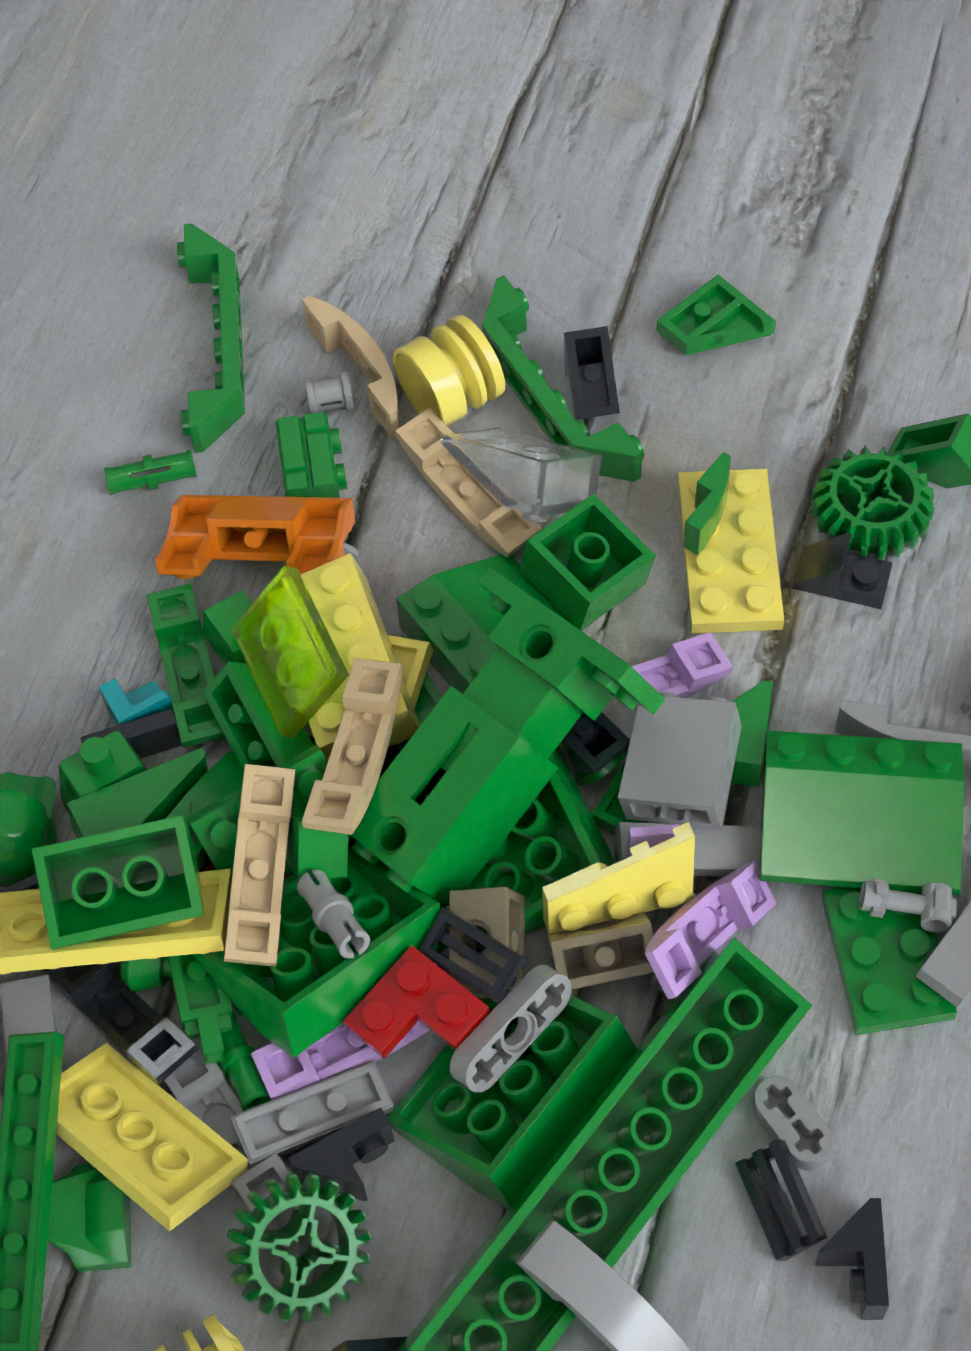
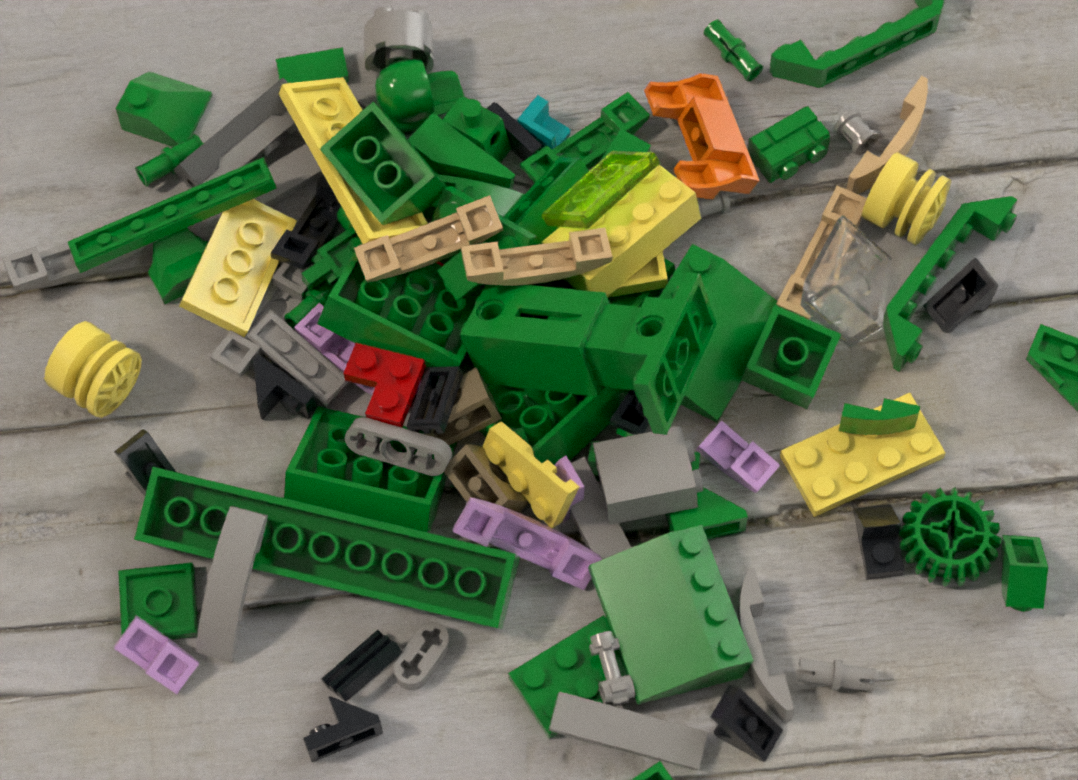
camera: 65 degrees right, 5 degrees up
(295, 1270) = (191, 359): green gear -> none
(333, 914) = (418, 299): light grey pin -> none

